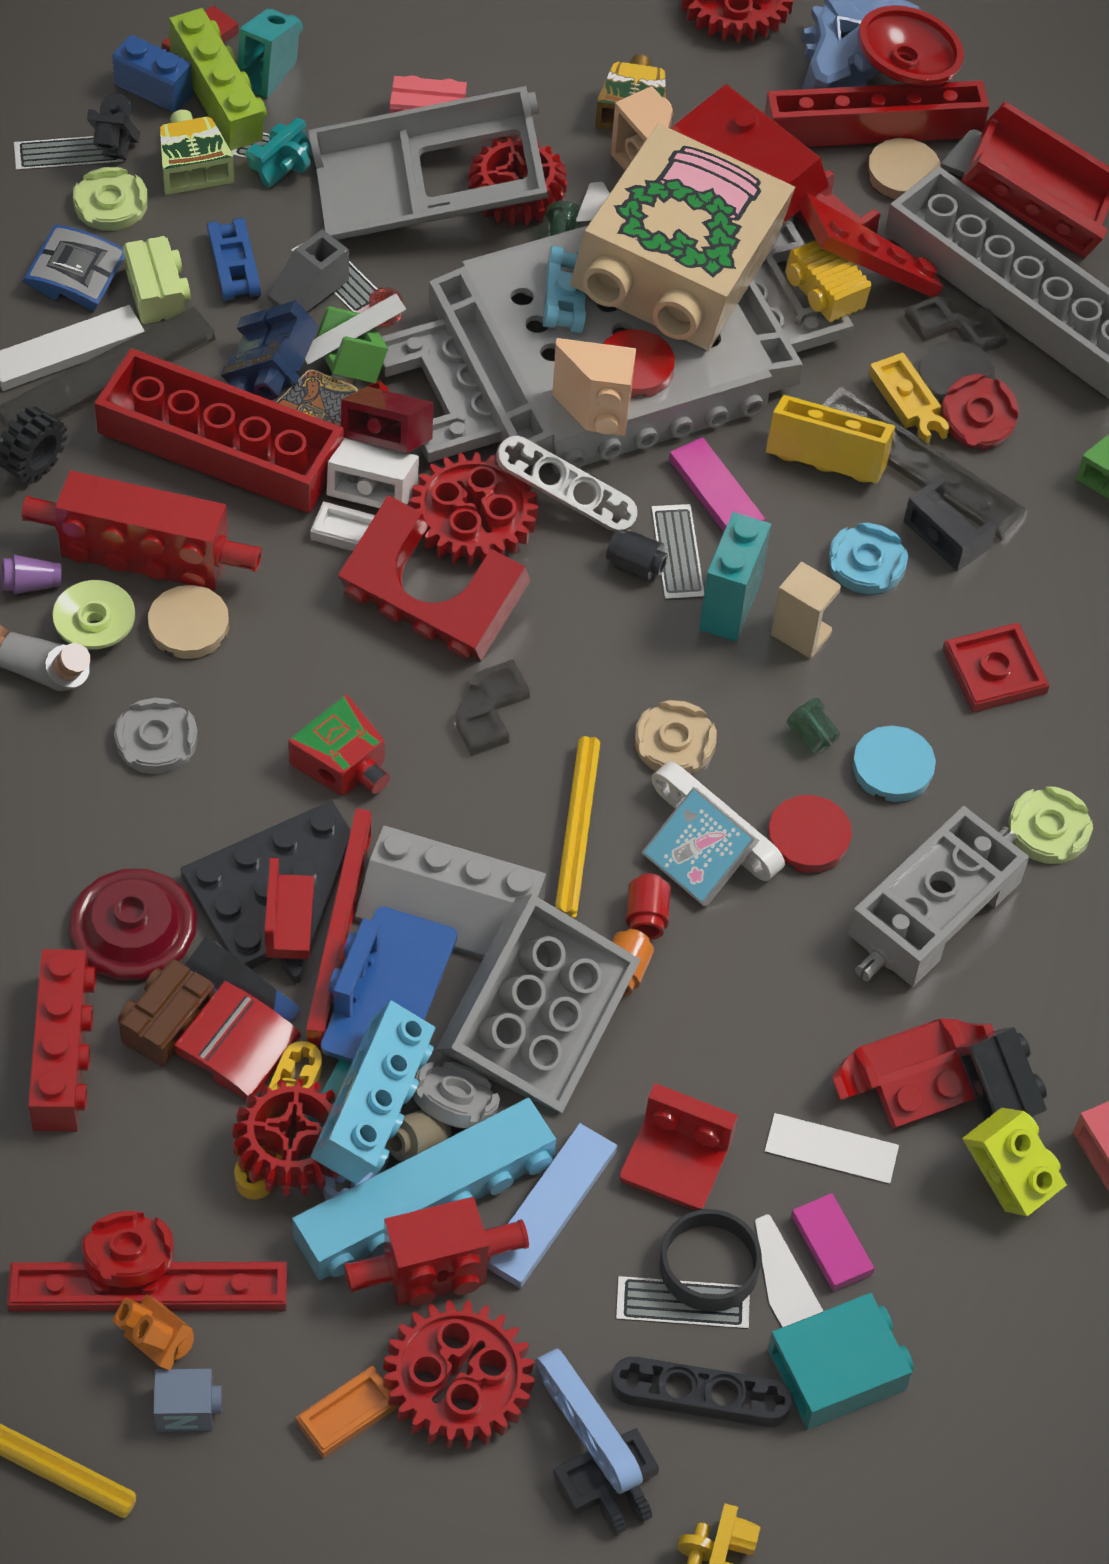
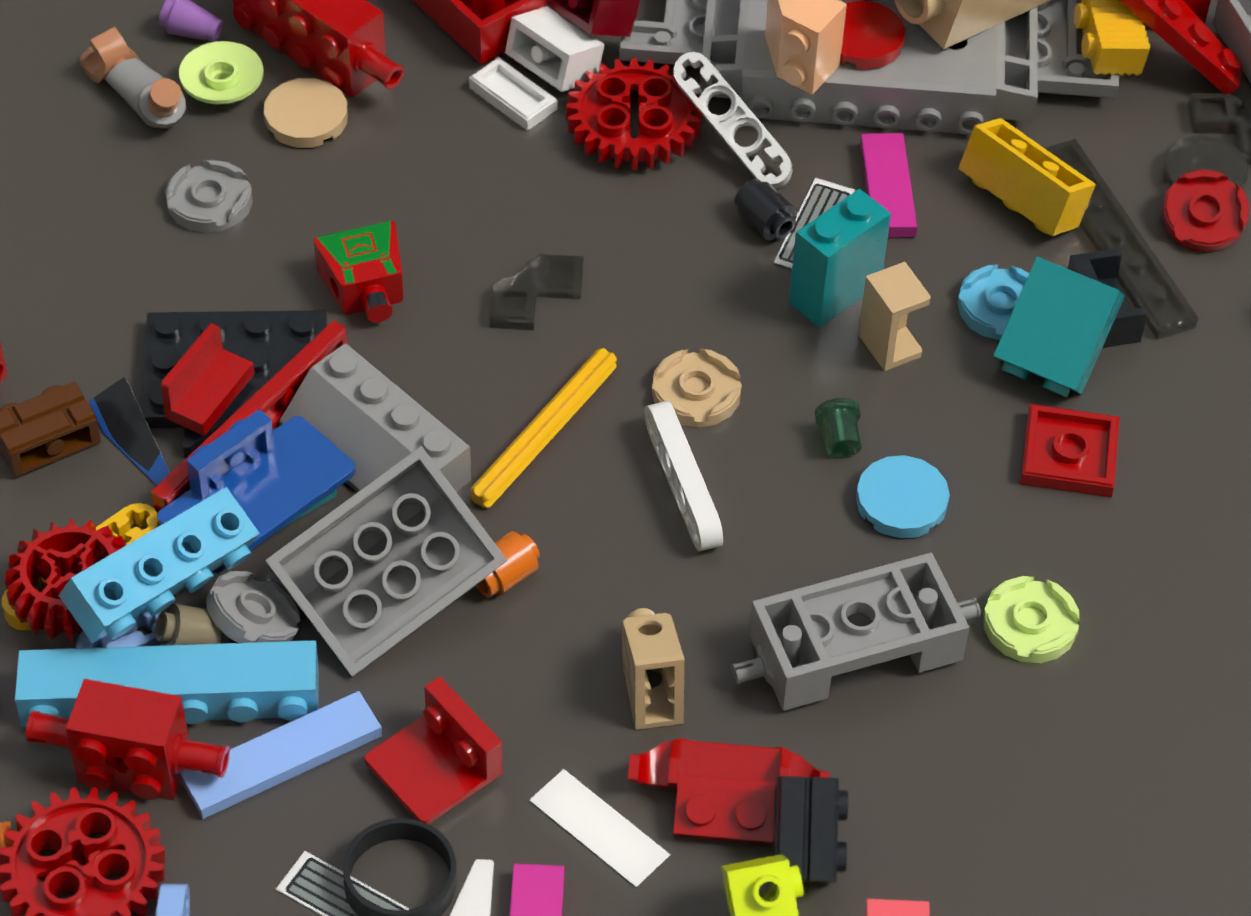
camera: 30 degrees right, 5 degrees down
(132, 923) = (73, 340): dark red piece -> none
(237, 1040) = (91, 477): red slope -> none
(464, 622) = (560, 202): red arch -> none
(648, 905) = (560, 523): red brick -> none
(700, 846) = (646, 488): medium azure tile -> none
(802, 997) = (653, 645): none -> tan torso
(810, 833) = (772, 525): red tile -> none
(908, 396) = (1139, 171): yellow plate -> none
(939, 567) = (1058, 327): none -> teal brick

